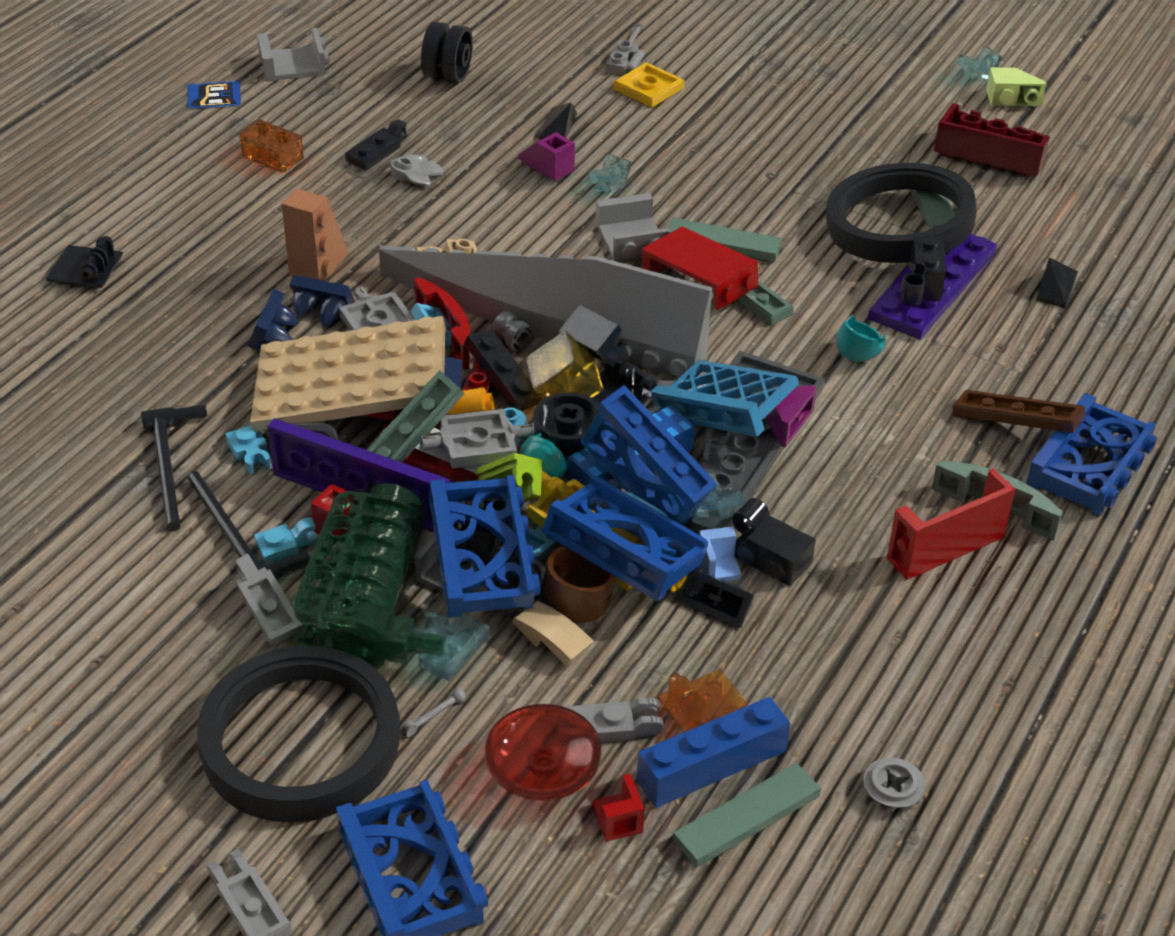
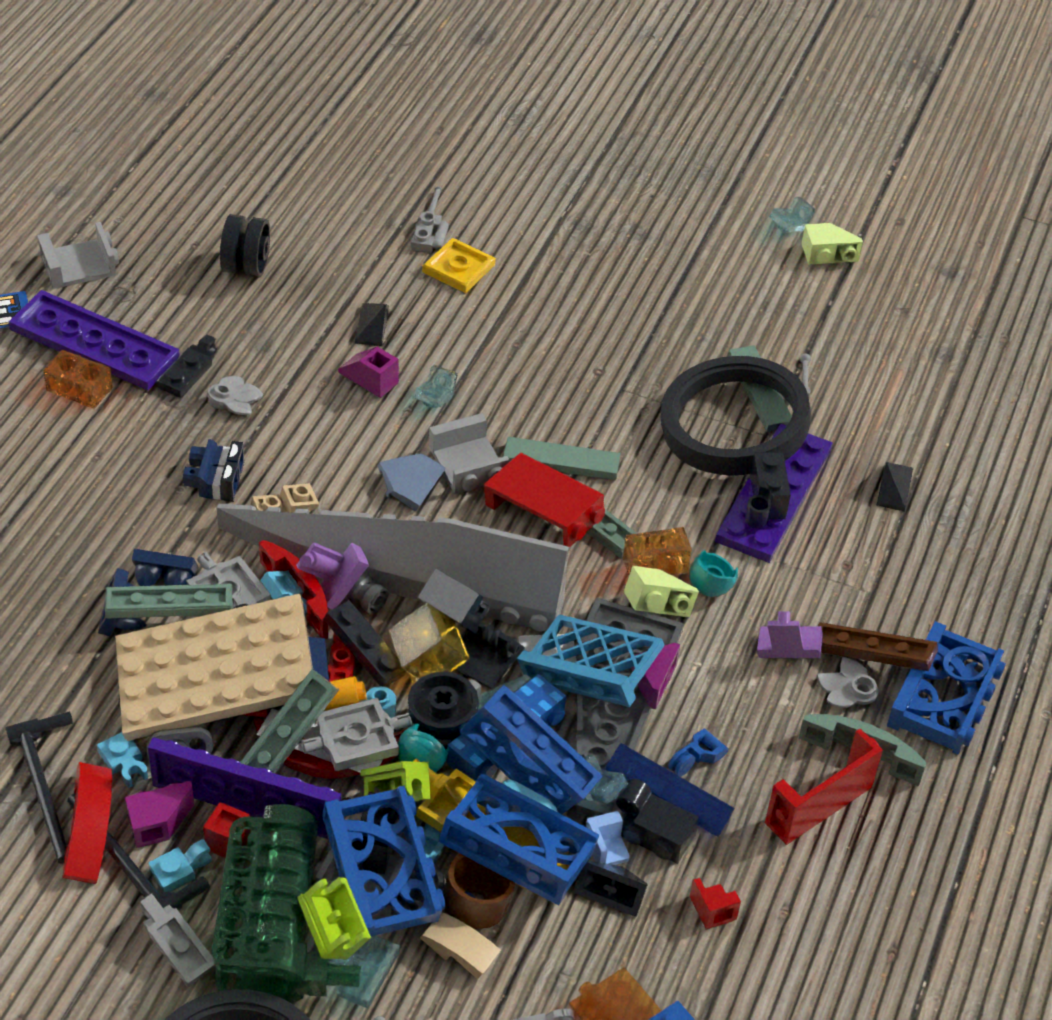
camera: 10 degrees left, 5 degrees up
(201, 497) = (89, 823): none -> red slope
(273, 493) = (158, 812): none -> magenta slope
(311, 236) = (146, 503): nougat wedge -> none
(314, 316) = (167, 600): none -> sand green tile
(320, 128) = (94, 337): none -> dark purple plate
(385, 223) = (218, 470): none -> dark blue hips
(423, 587) = (334, 919): none -> lime hinge
(481, 302) = (337, 569): none -> medium lavender piece
(573, 240) = (410, 478): none -> sand blue slope
(804, 350) = (659, 592): none -> yellowish green slope
(805, 318) = (658, 549): none -> clear orange brick
(809, 493) = (686, 757): none -> blue piece
(823, 624) = (714, 904): none -> red panel
(830, 541) = (672, 788): none -> clear blue tile
(929, 399) = (789, 639): none -> medium lavender piece
(978, 178) = (805, 359): none -> light grey hinge
(990, 142) = (813, 317): dark red wedge -> none
(991, 446) = (847, 686): none -> light grey plate

